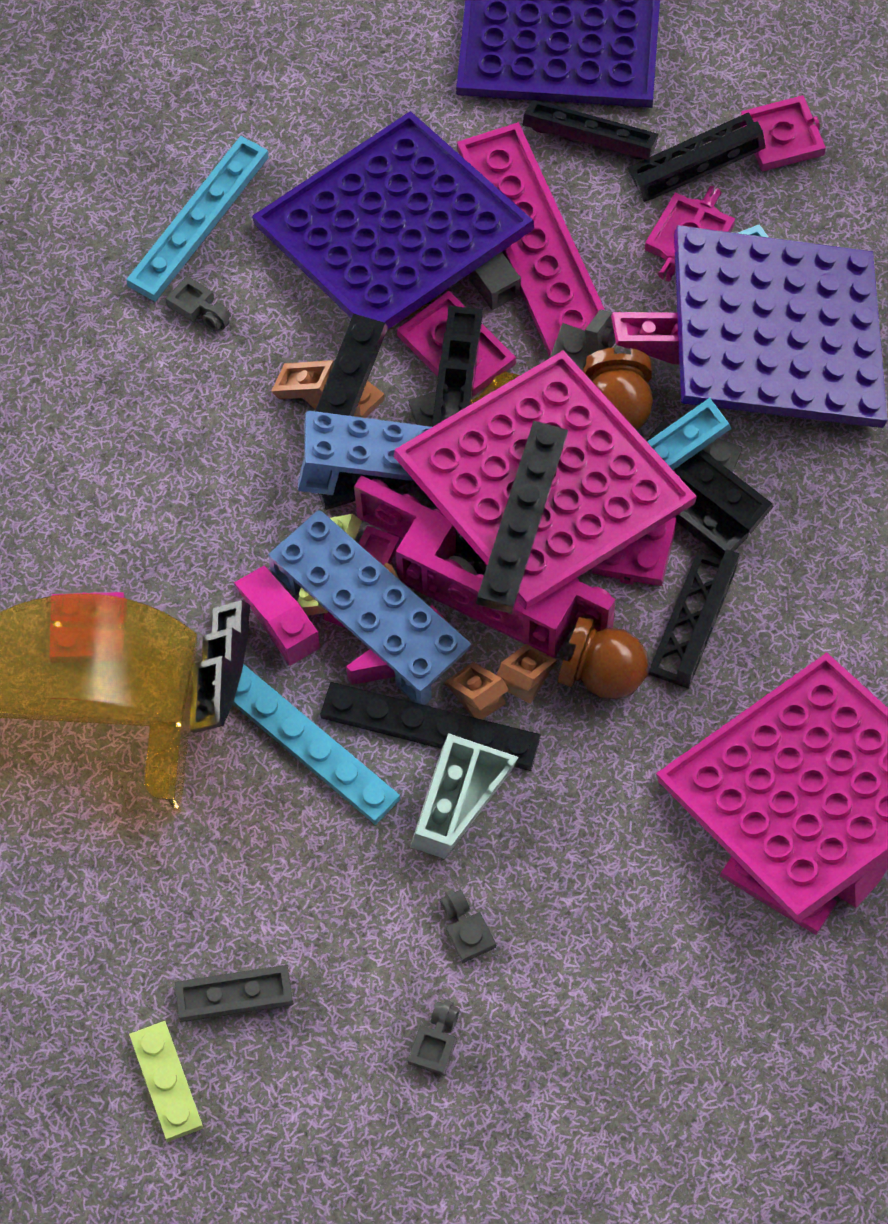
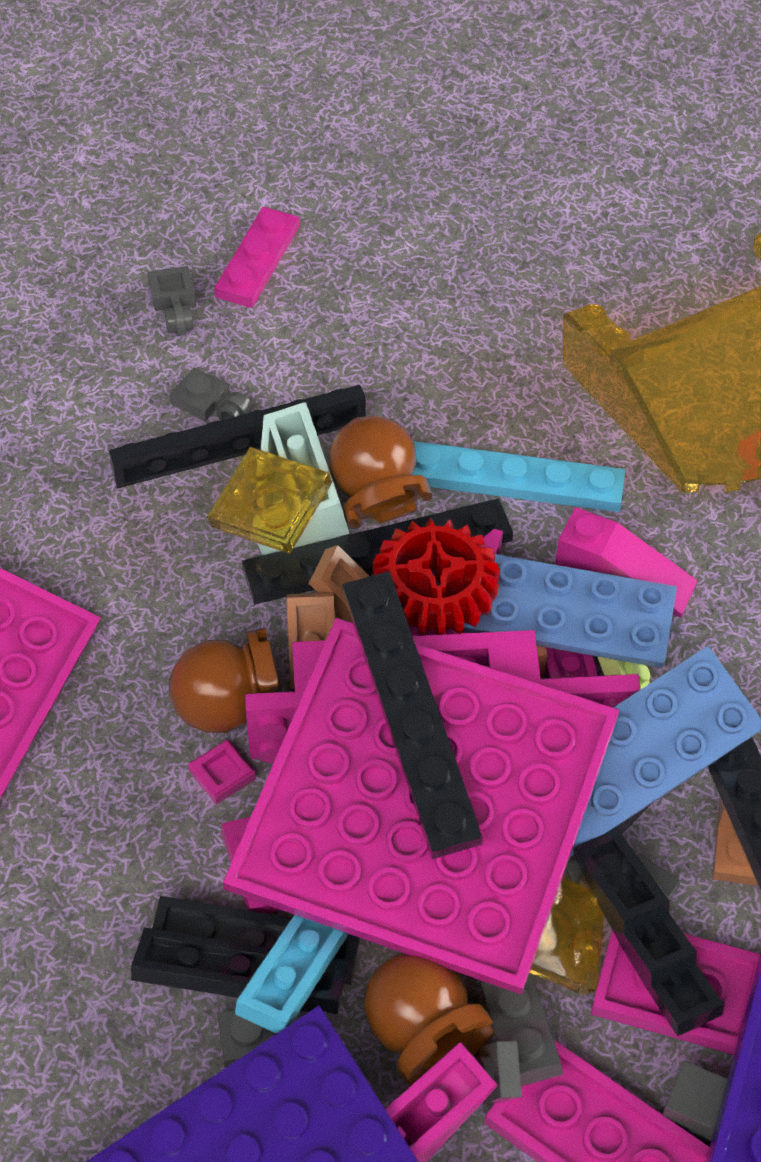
camera: 145 degrees right, 10 degrees down
(166, 1081) = (394, 169): yellowish green plate -> none
(219, 672) = (626, 462): black slope -> none
(233, 993) = (386, 246): dark grey plate -> none
(340, 1051) = (257, 257): none -> dark pink plate
(402, 752) = (375, 466): none -> dark orange tile
(409, 609) = (461, 566): none -> red gear
(484, 873) = (225, 438): none -> black plate
(494, 765) = (269, 500): none -> clear yellow plate
(639, 623) = (221, 771): none -> dark pink tile
(706, 617) = (140, 807): black fence -> none

